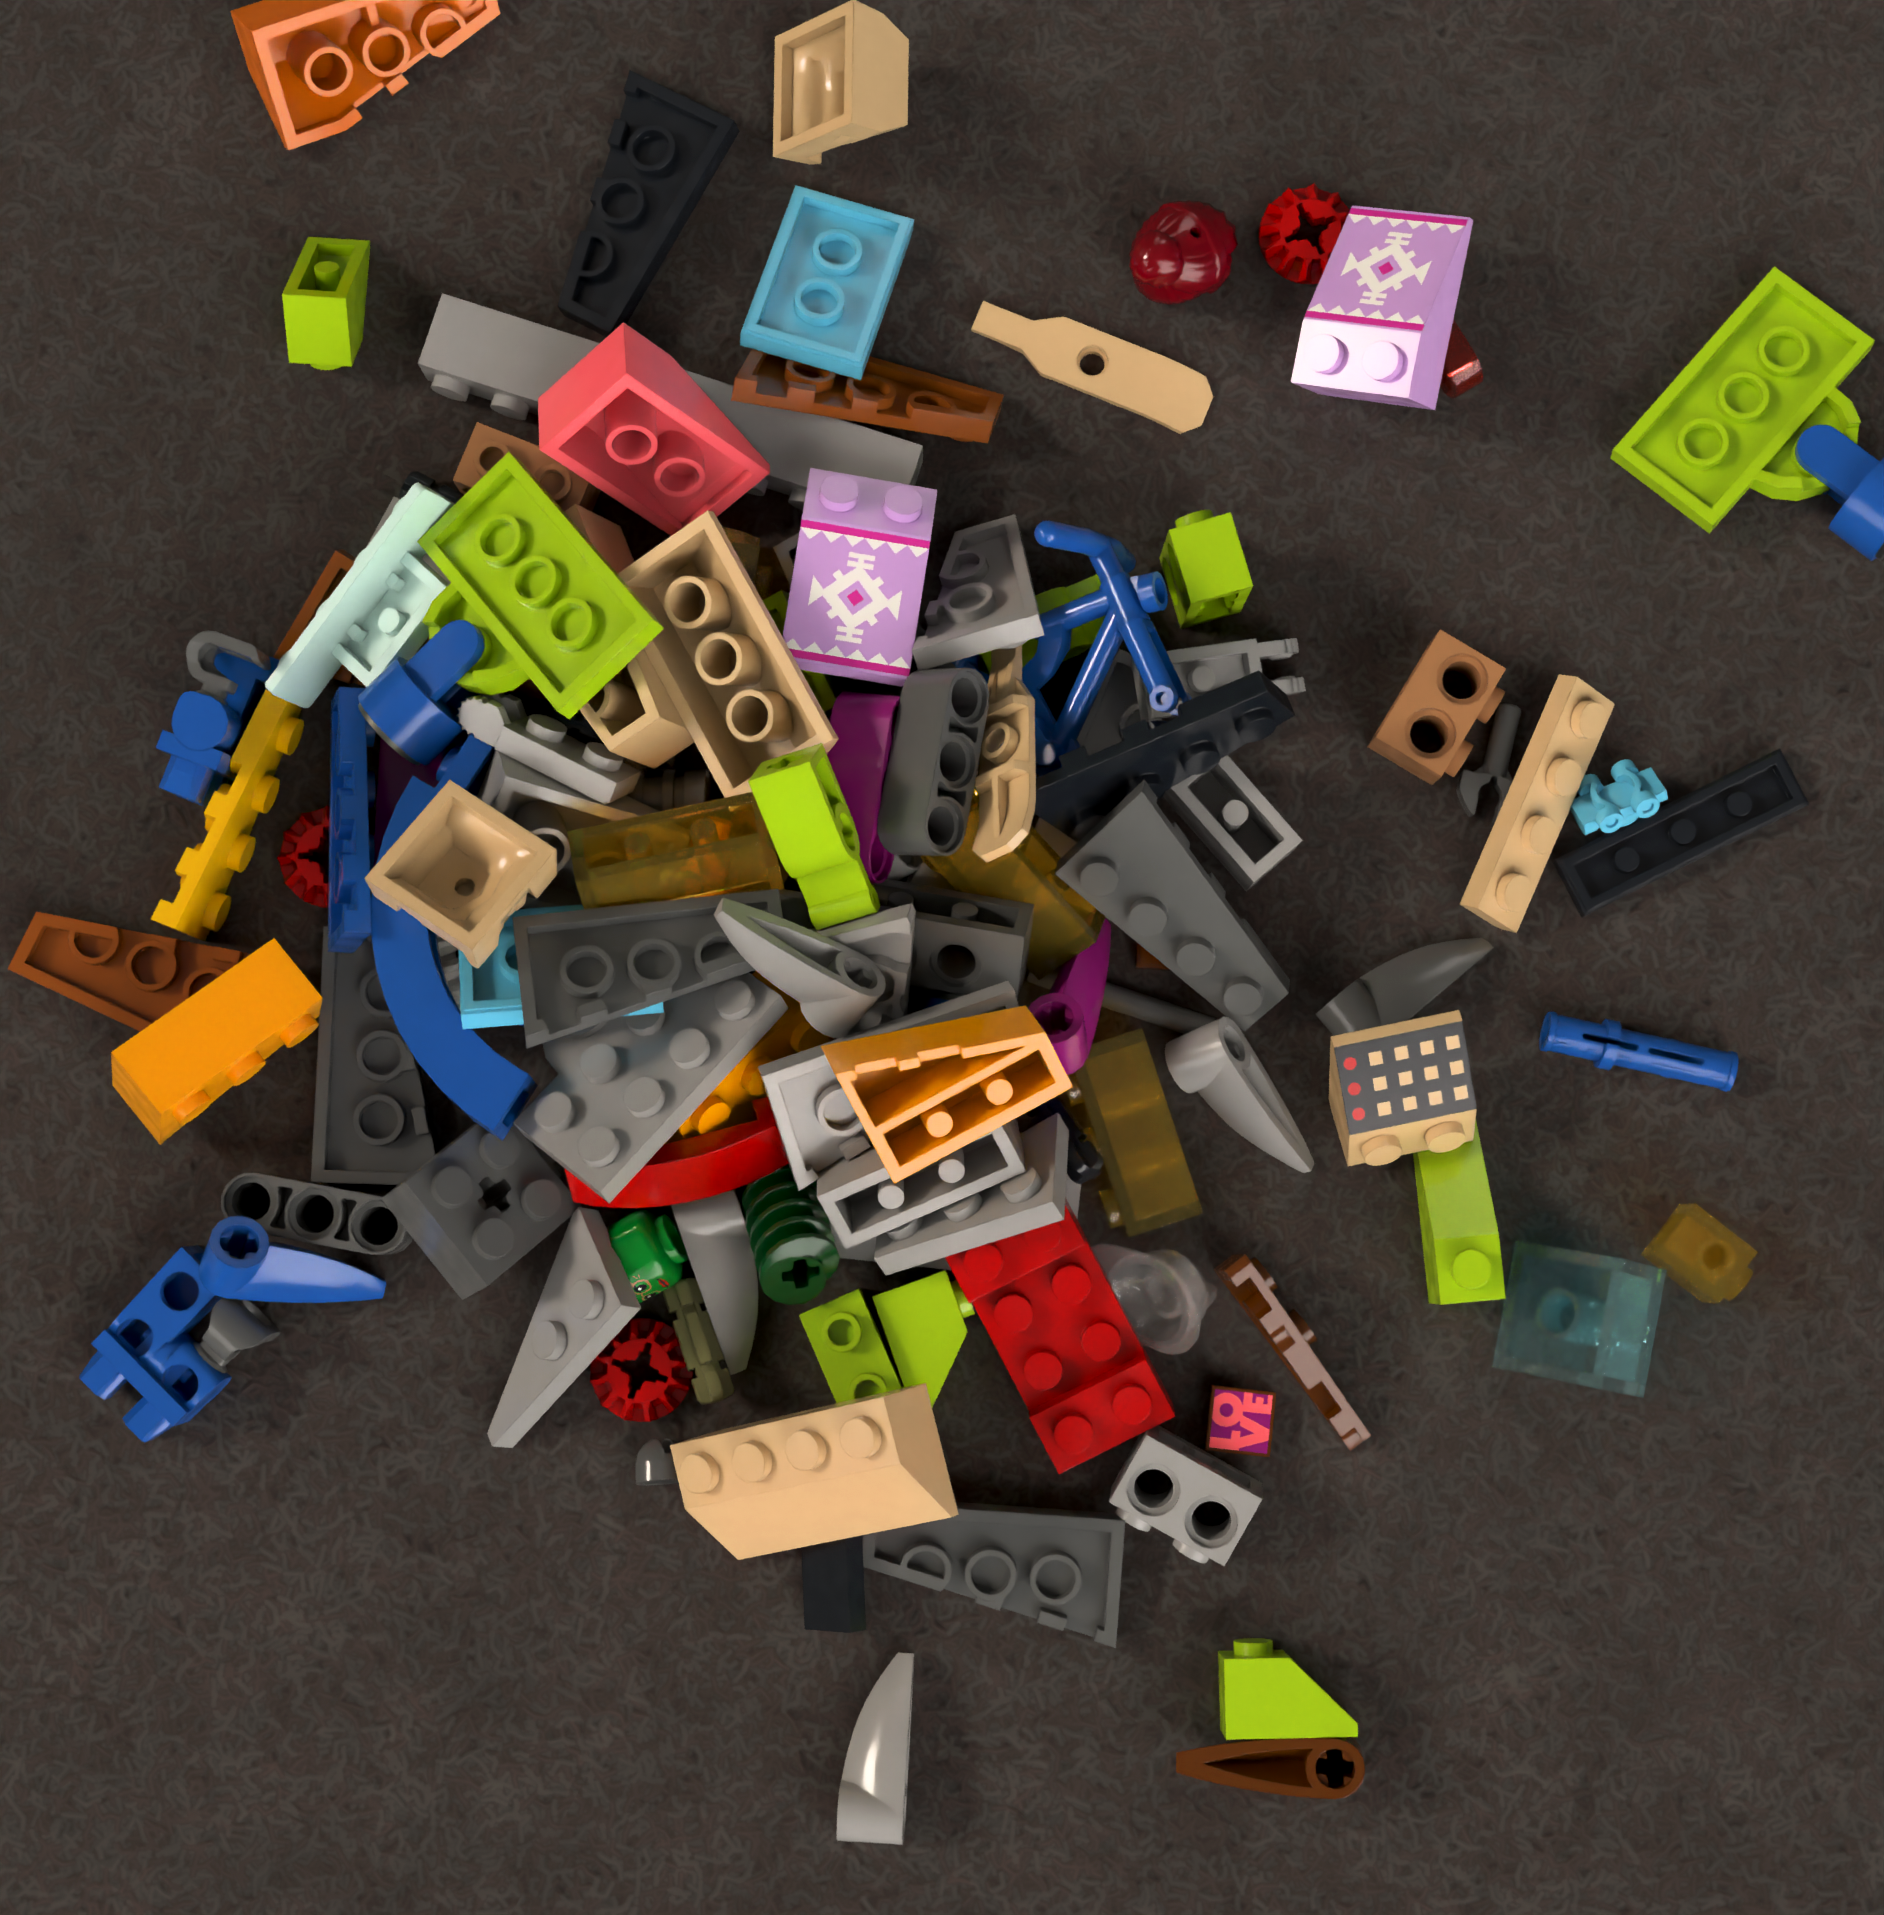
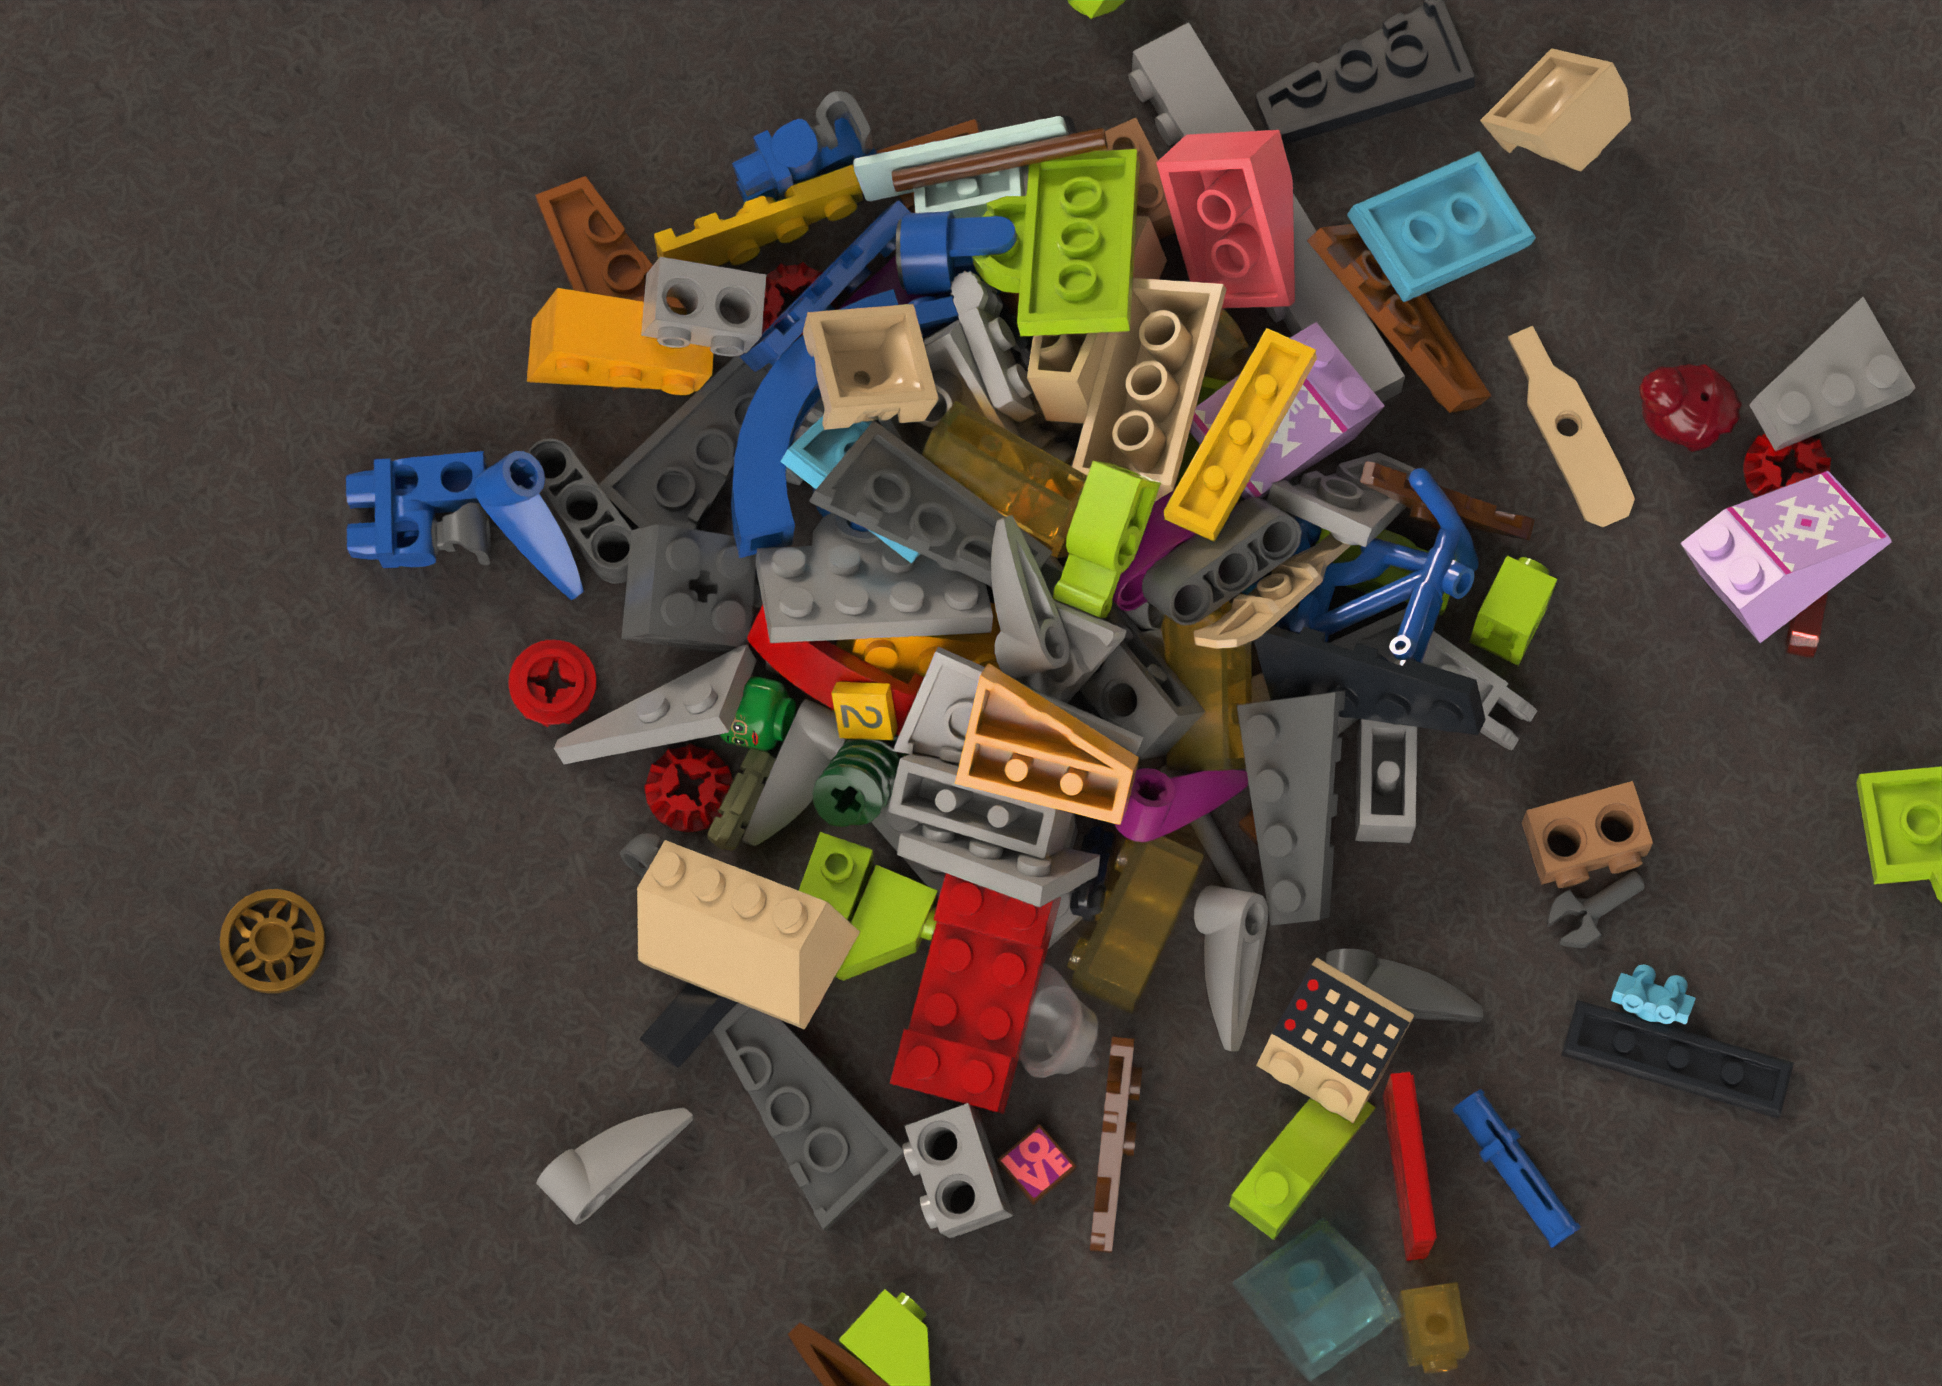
camera: 45 degrees right, 10 degrees down
(246, 934) = (702, 292): none -> light grey brick
(395, 570) = (999, 159): none -> reddish brown piece
(405, 1383) = (536, 664): none -> red gear
(407, 1841) = (272, 941): none -> pearl gold wheel
(741, 1177) = (864, 711): none -> yellow tile
(848, 634) = (1240, 434): none -> yellow plate
(1092, 516) = (1473, 512): none -> reddish brown wing
(1281, 121) = (1833, 381): none -> light grey wing
(1537, 803) = (1597, 952): tan plate -> none
(1564, 1140) = (1409, 1166): none -> red tile

